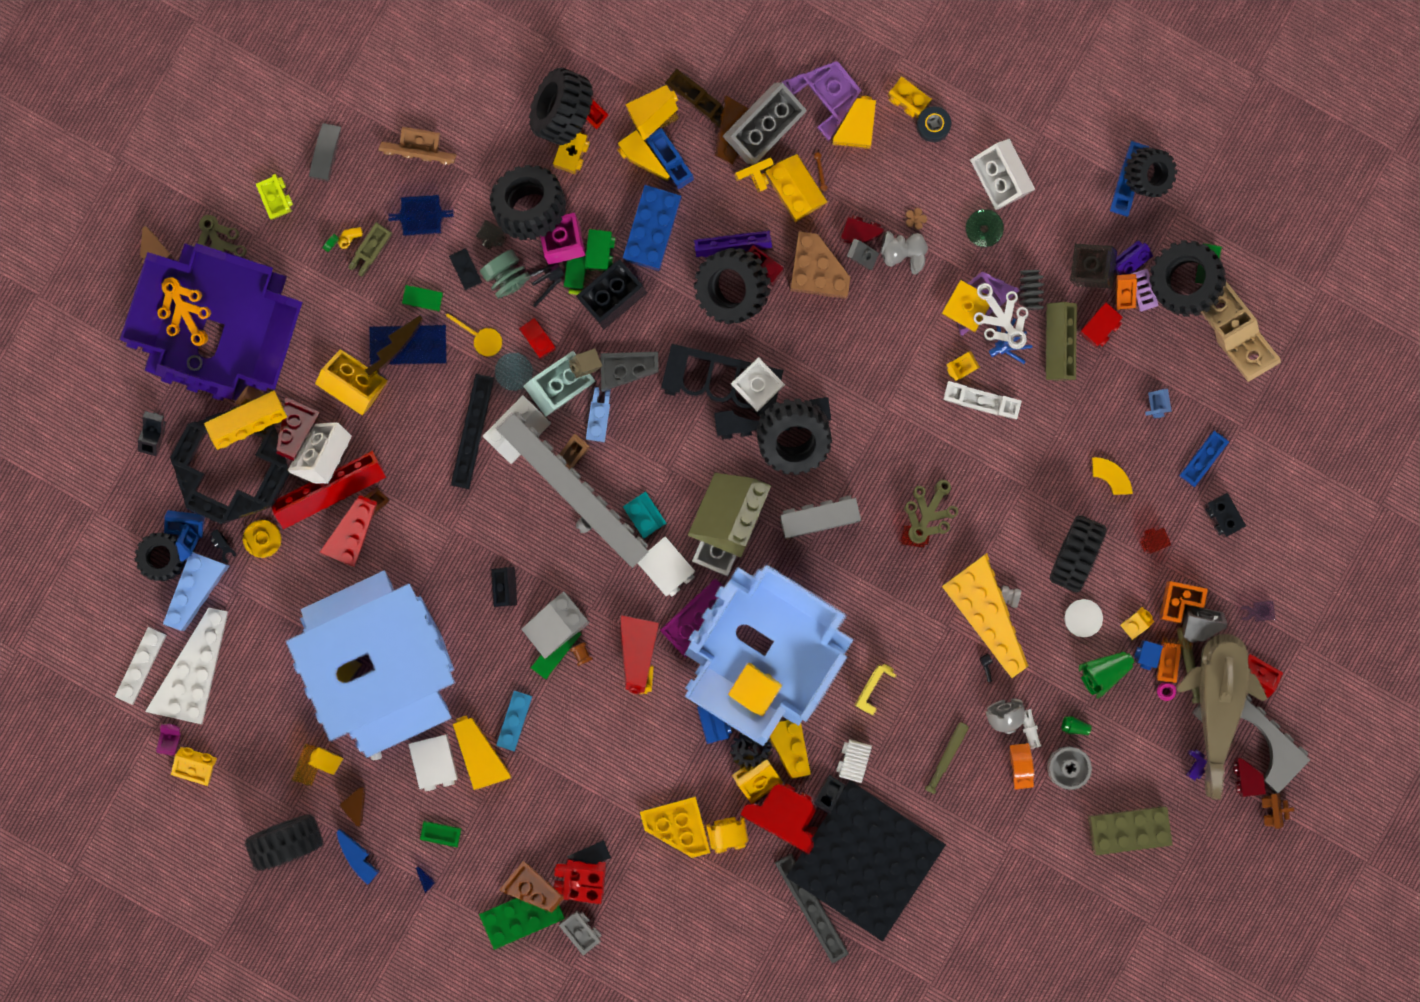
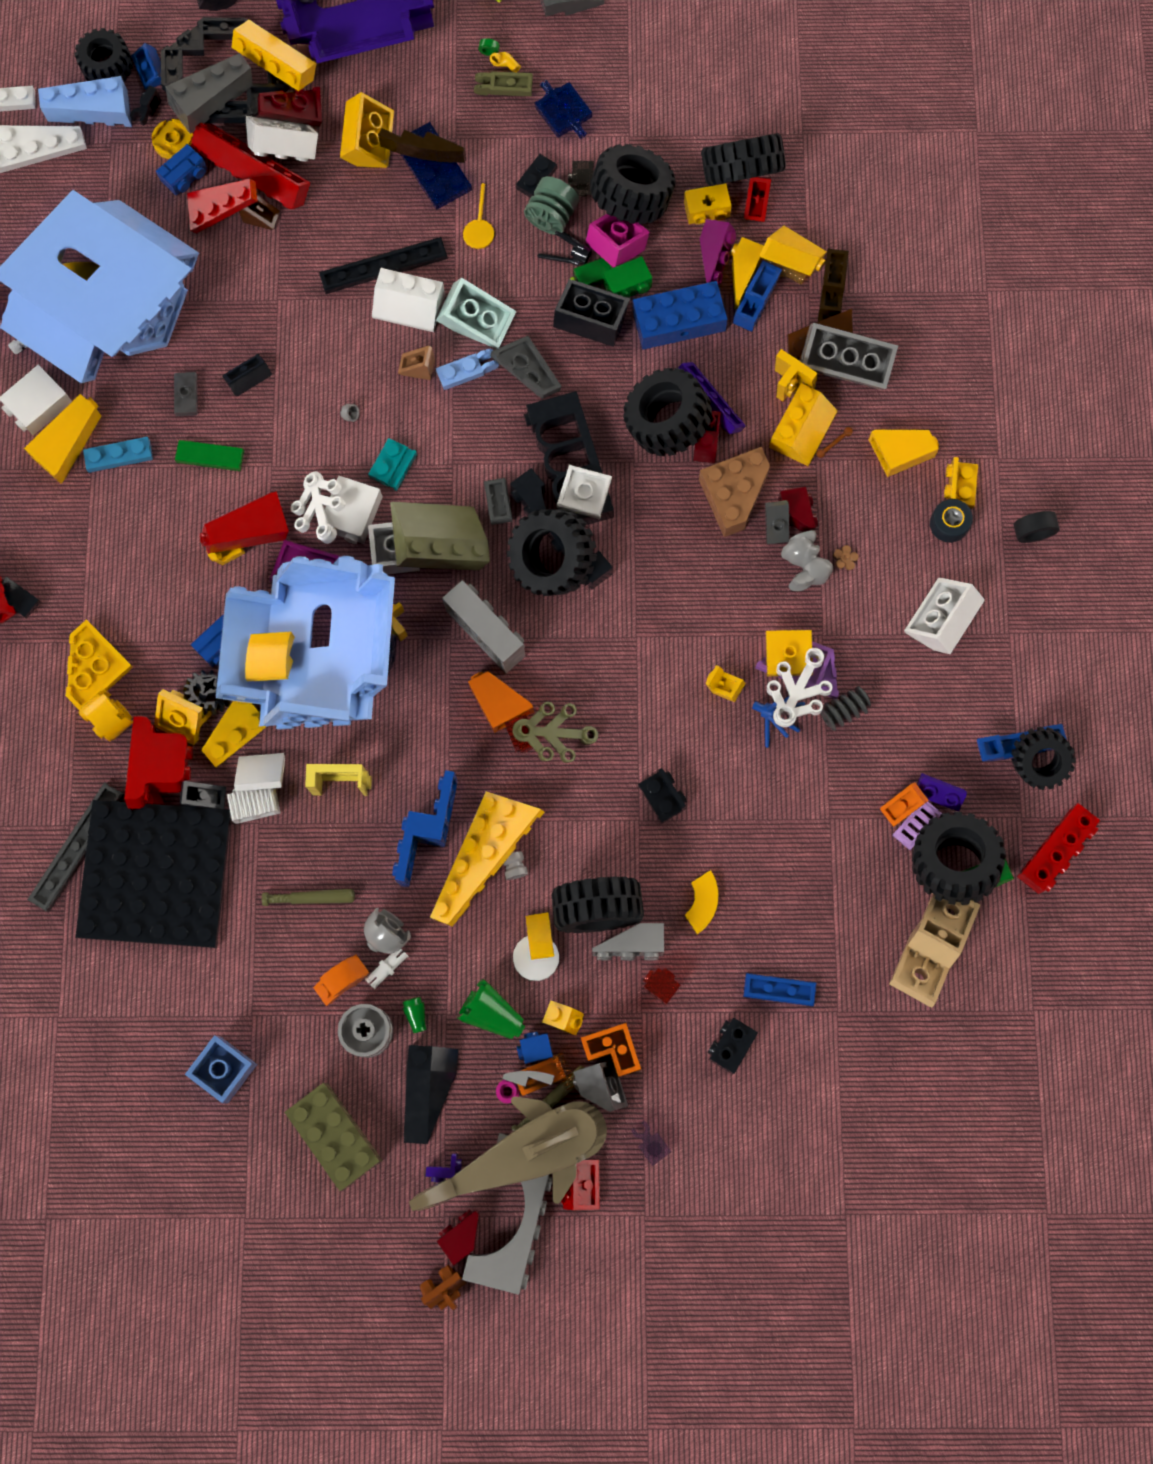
camera: 65 degrees right, 10 degrees down
(186, 542) = (128, 67): blue slope -> none
(255, 495) = (208, 90): none -> dark grey wedge
(298, 545) = (182, 170): none -> blue brick
(418, 144) = (629, 70): medium nougat bracket -> none
(422, 298) = (485, 154): green tile -> none
(493, 642) = (185, 394): none -> flat silver plate
(513, 371) = (463, 265): clear light blue tile -> none
(537, 338) = (506, 274): red slope -> none
(555, 625) = (236, 439): light grey slope -> none
(566, 483) = (374, 370): light grey brick -> none
(581, 654) = (218, 478): dark orange bush -> none
(585, 363) = (508, 325): dark tan brick -> none
(611, 167) = (715, 247): none -> magenta slope
(649, 589) = (313, 485): none -> white plant
(722, 452) = (498, 501): none -> dark grey plate
(834, 90) = (924, 406): medium lavender wing -> none
(835, 743) = (259, 772): none -> white tile
(880, 539) = (498, 700): none -> orange slope
(948, 645) = (425, 829): none -> blue bracket
(977, 66) = (1036, 526): none -> black tyre
(982, 400) = (701, 722): white slope -> none
(984, 218) = (878, 617): clear green dish -> none
(985, 661) = (432, 880): black hand -> none
(1018, 460) = (662, 795): none -> black bracket
(1039, 884) = (221, 1069): none -> medium blue brick
(1061, 341) = (811, 767): olive brick -> none
(1071, 606) = (539, 936): none -> yellow slope
(1093, 266) = (909, 755): clear smoke brick -> none
(1100, 325) = (853, 801): red brick -> none
(1115, 543) = (640, 940): none -> light grey slope
(1130, 744) = (427, 1087): none -> black wedge
(1159, 403) = (809, 907): medium blue bracket -> none
(1165, 674) = (522, 1077): none -> light grey slope
(1219, 201) = (1058, 849): none -> red brick

